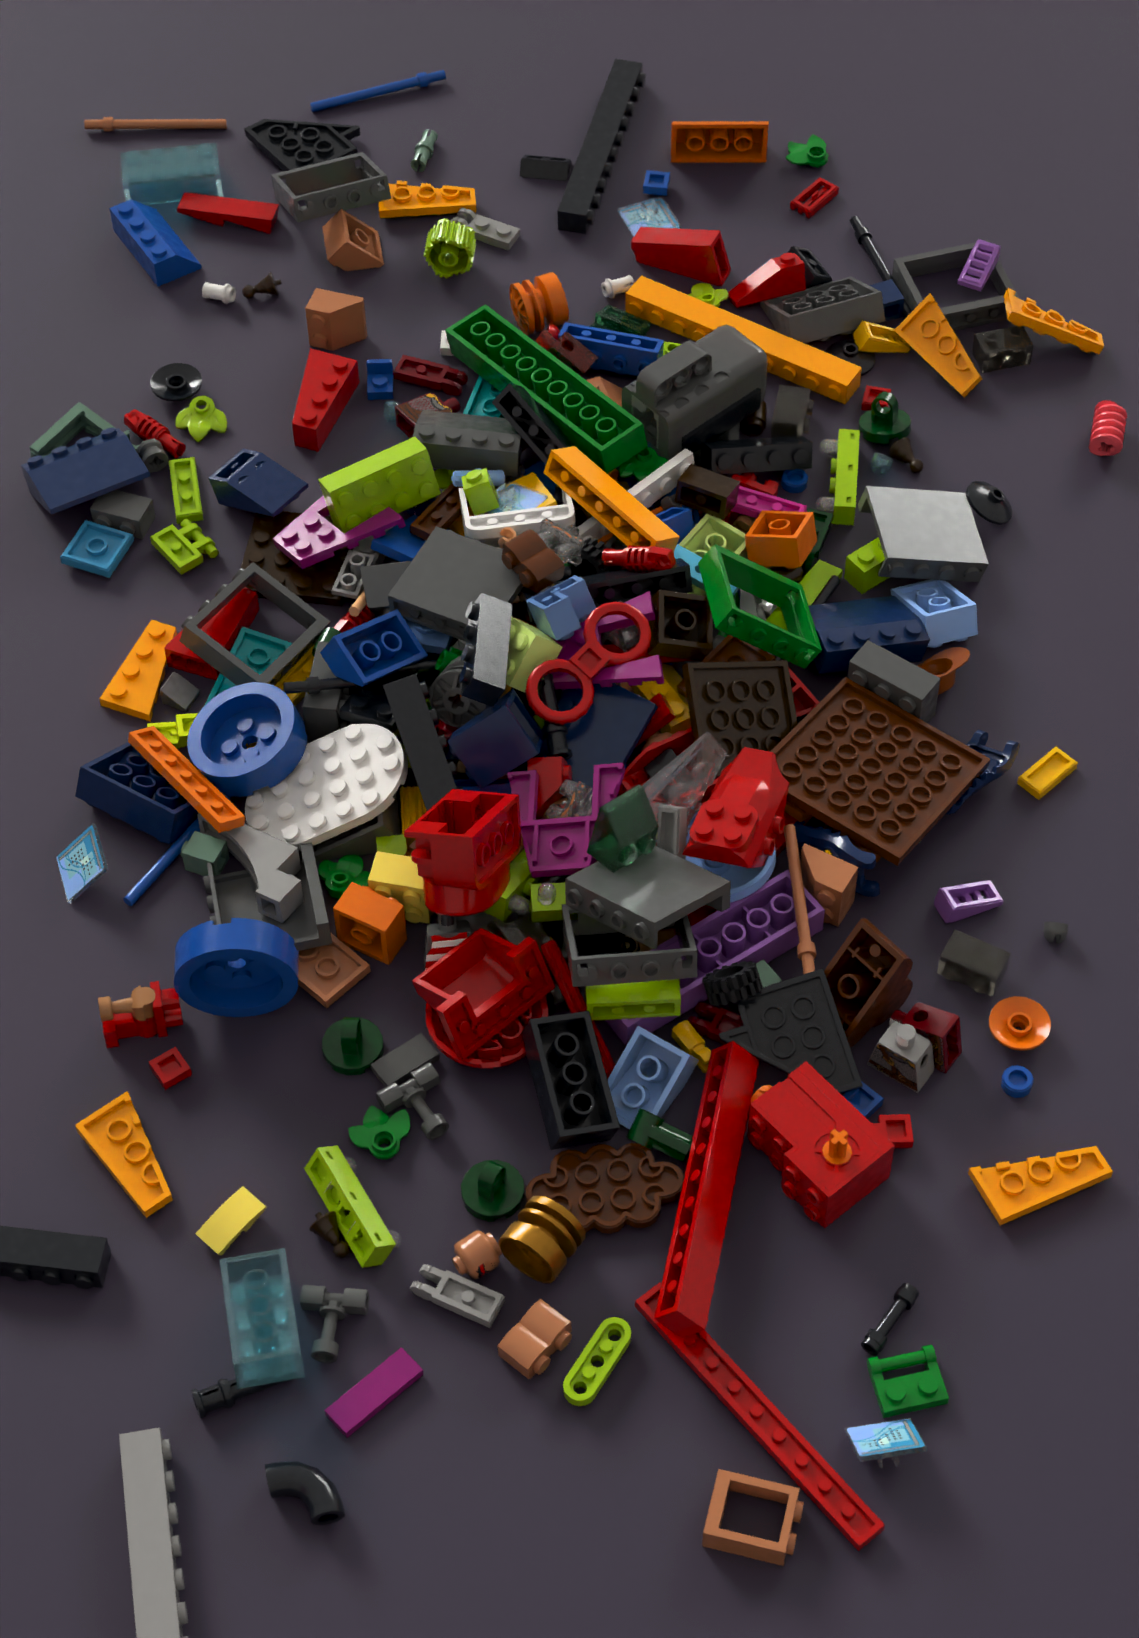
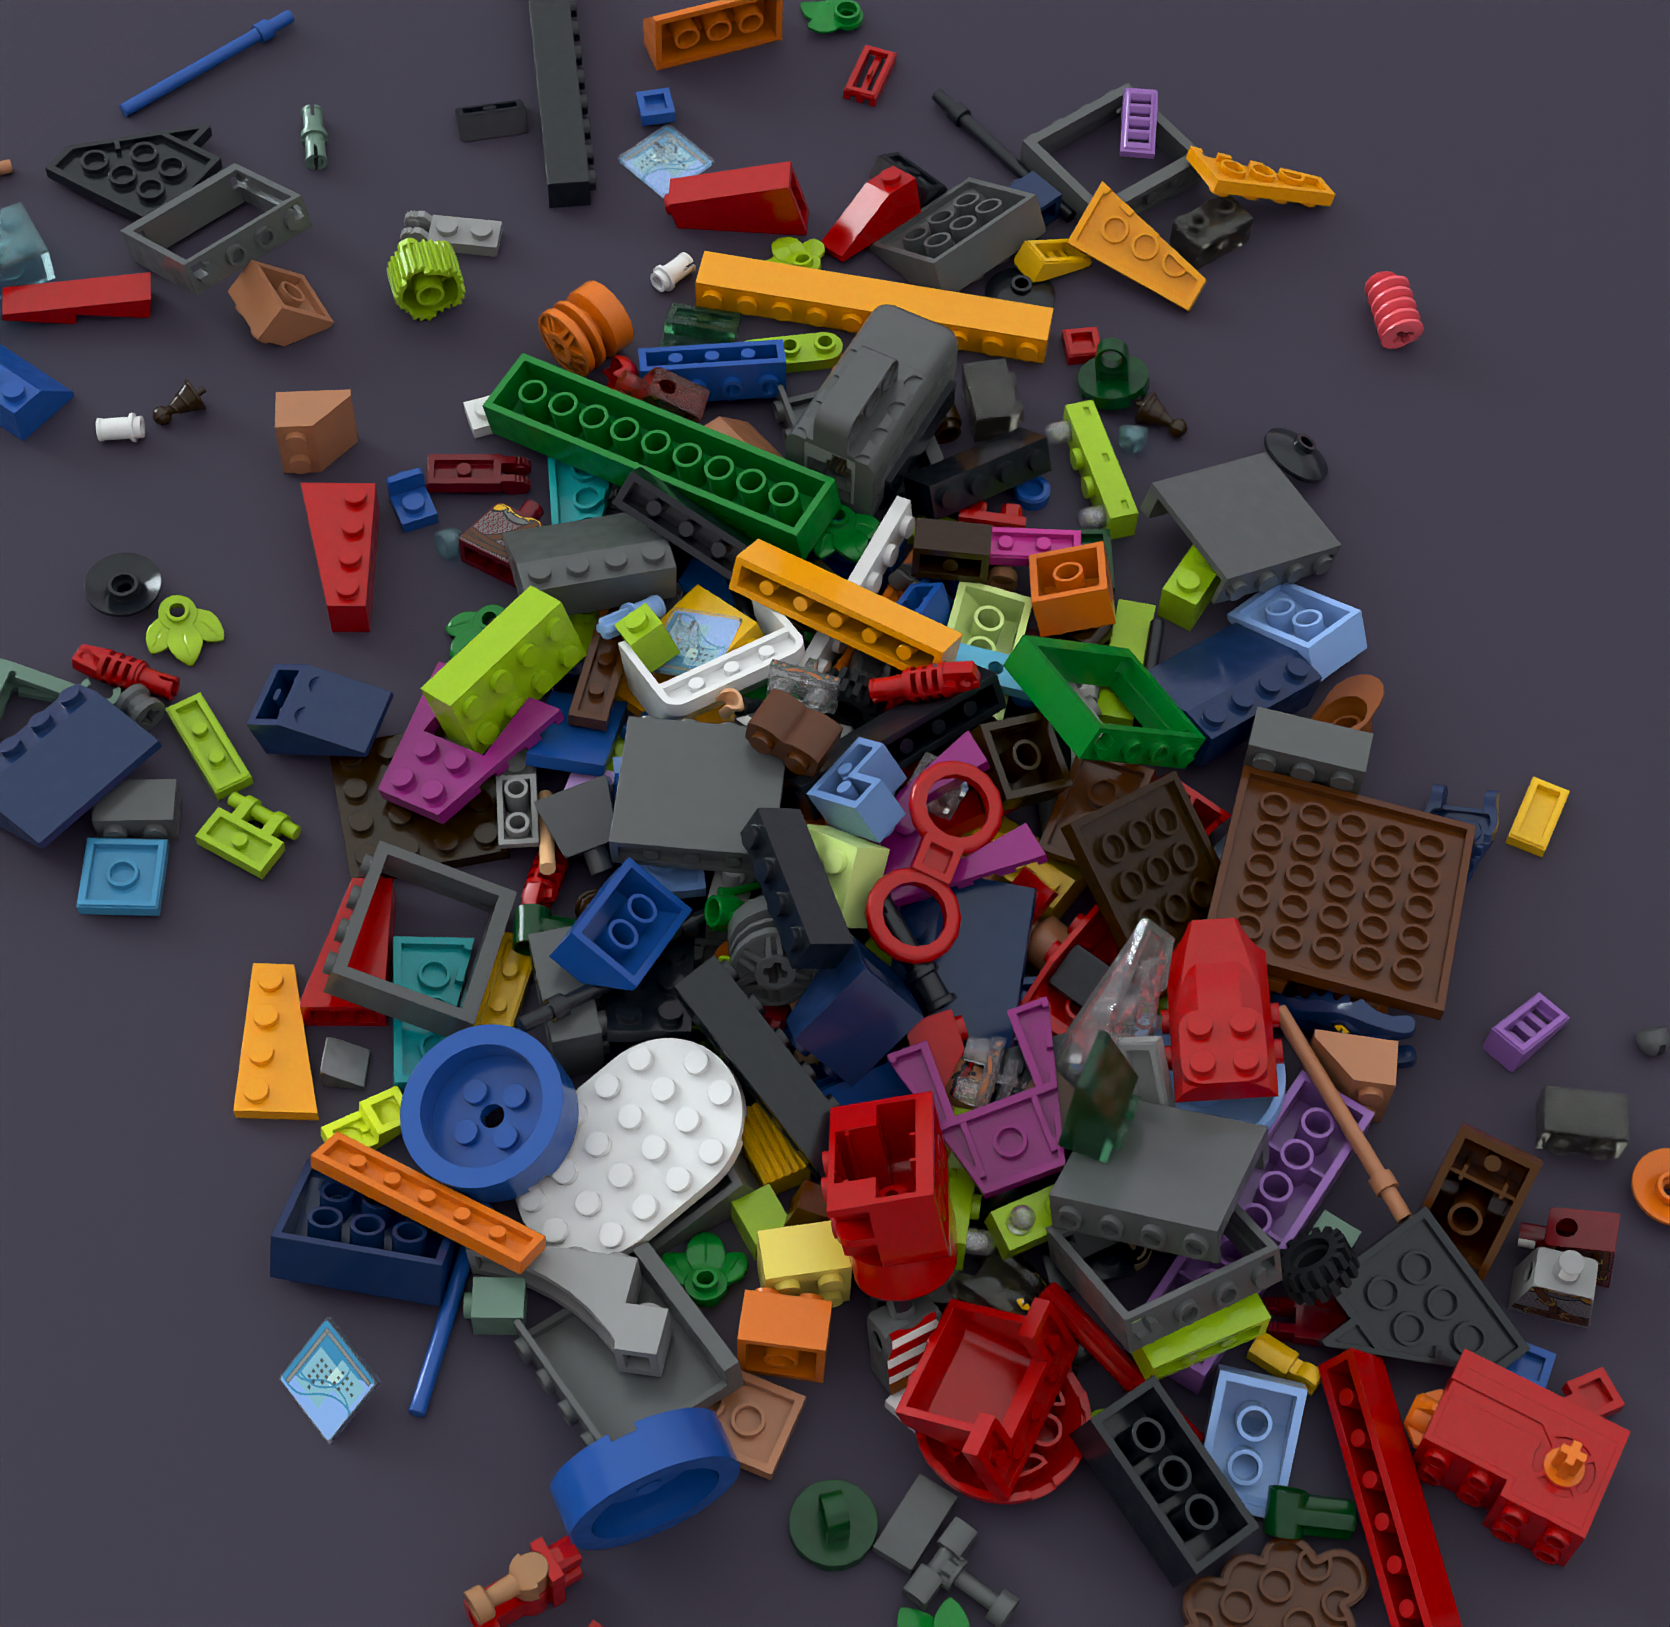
camera: 25 degrees left, 5 degrees up
(426, 200) = (356, 211): light orange wing -> none

